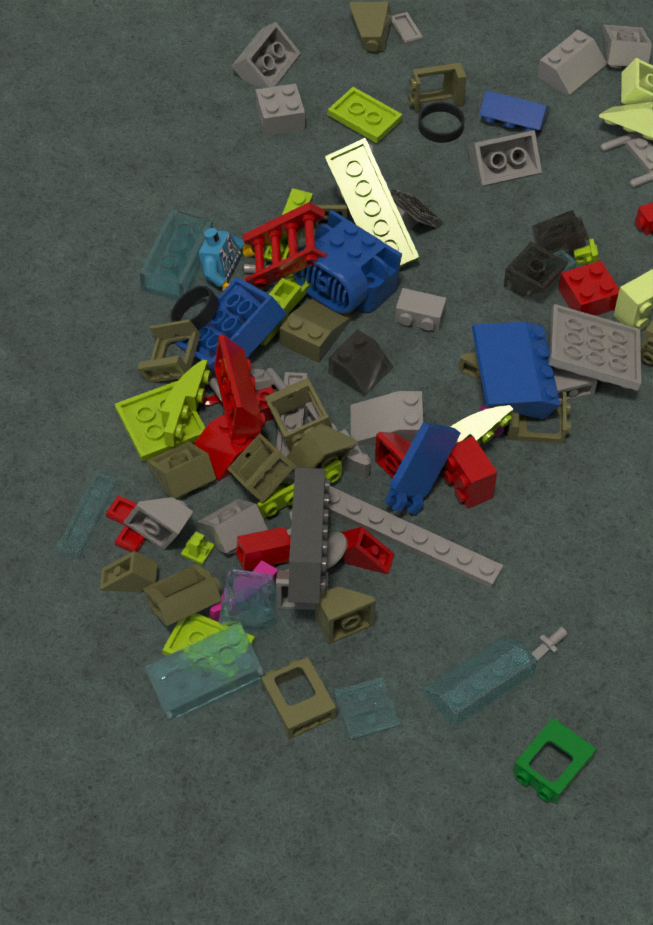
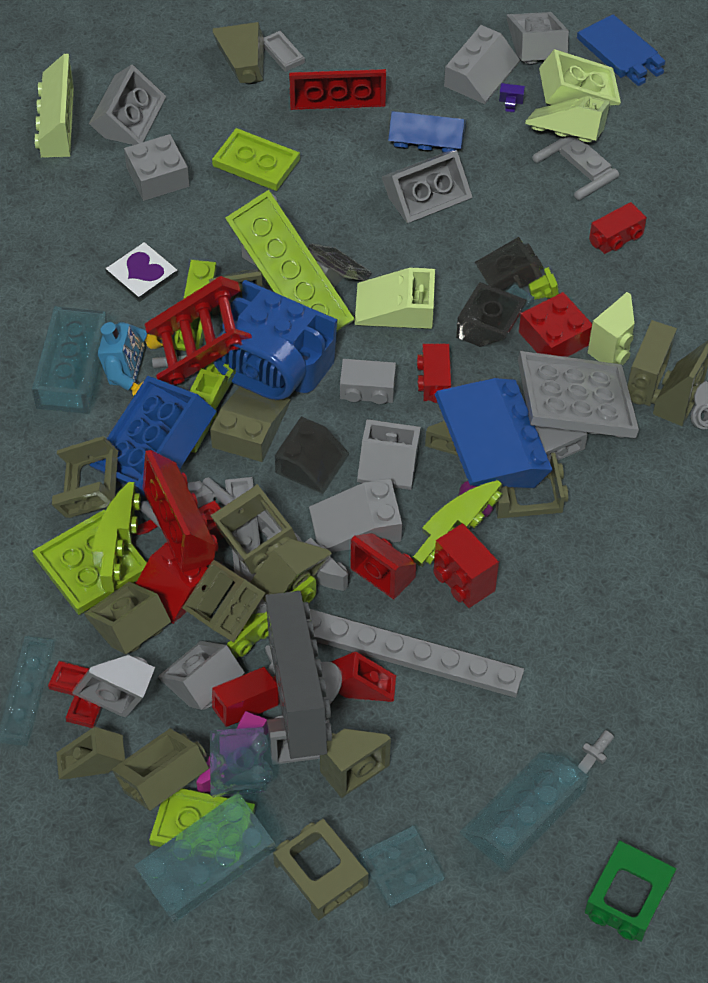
camera: 10 degrees left, 0 degrees up
(189, 298) = (96, 408): black tyre -> none
(197, 549) = (165, 709): lime brick -> none
(206, 51) = (55, 110): none -> yellowish green slope
(250, 193) = (141, 272): none -> tile
(421, 466) = (410, 569): blue tile -> none
(426, 370) = (388, 453): none -> light grey slope
(441, 107) = (345, 137): black tyre -> none
(453, 85) = (352, 112): olive window -> none
(459, 246) = (397, 299): none -> yellowish green slope
(472, 63) = (337, 89): none -> red slope
(480, 307) = (435, 370): none -> red brick
(592, 92) = (511, 95): none -> dark purple tile

